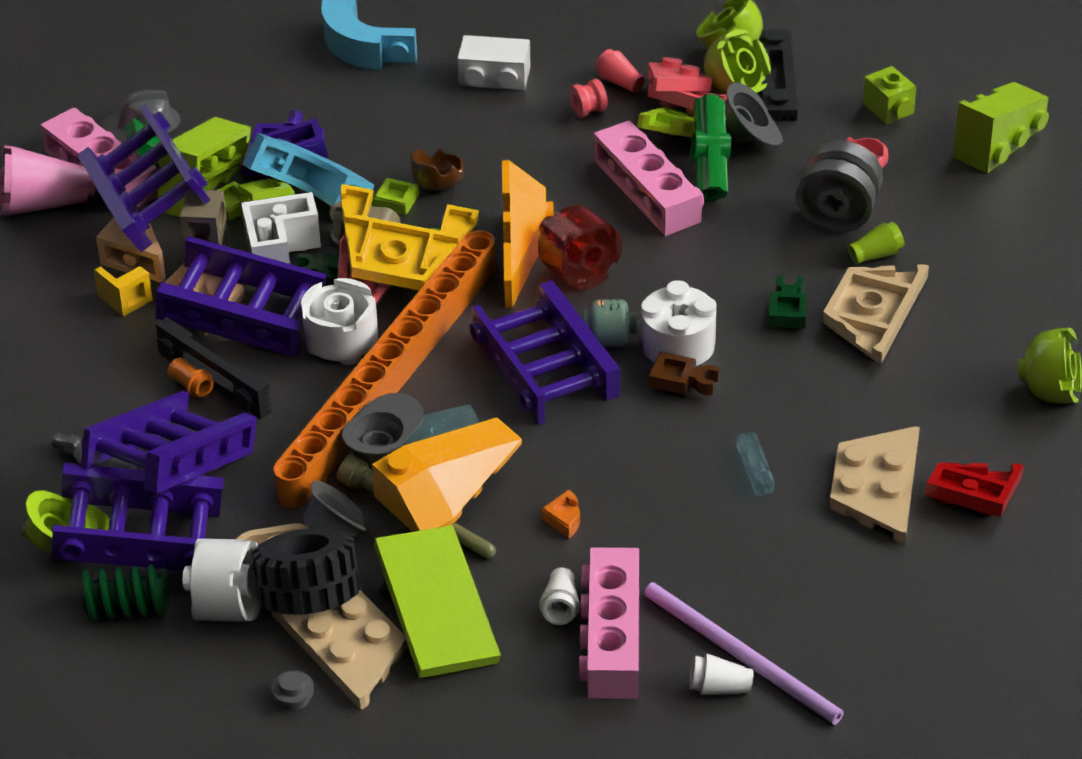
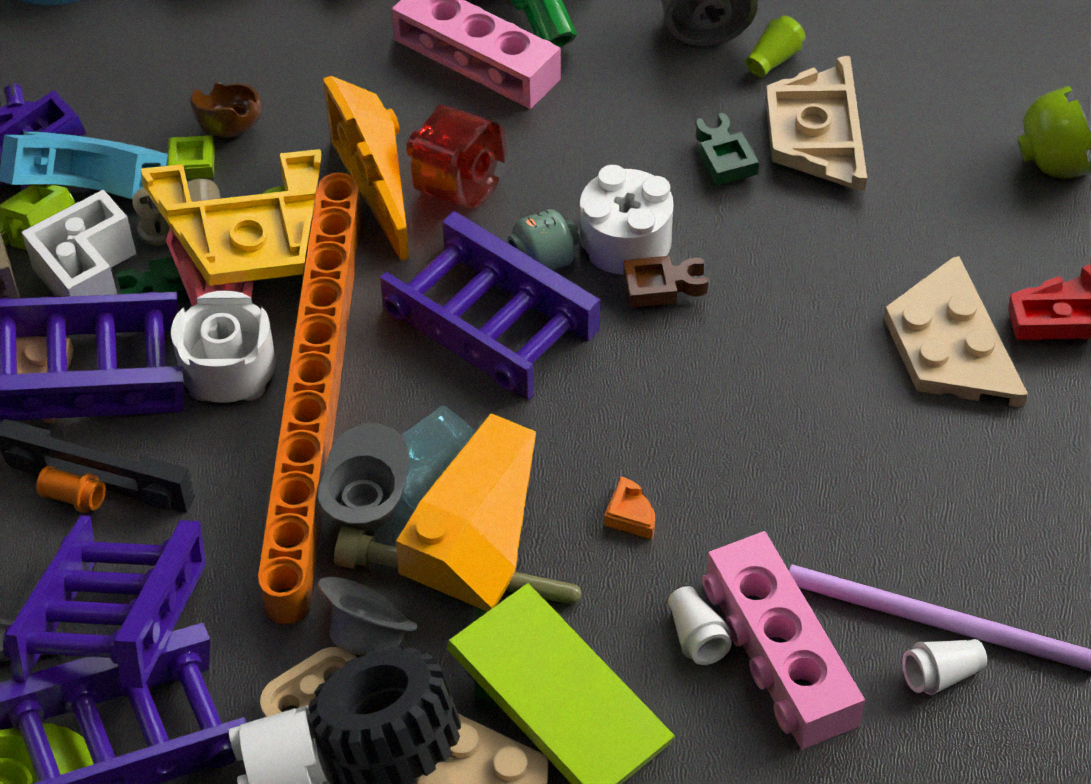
camera: 25 degrees left, 10 degrees up
(755, 463) = (809, 364): clear light blue axle -> none

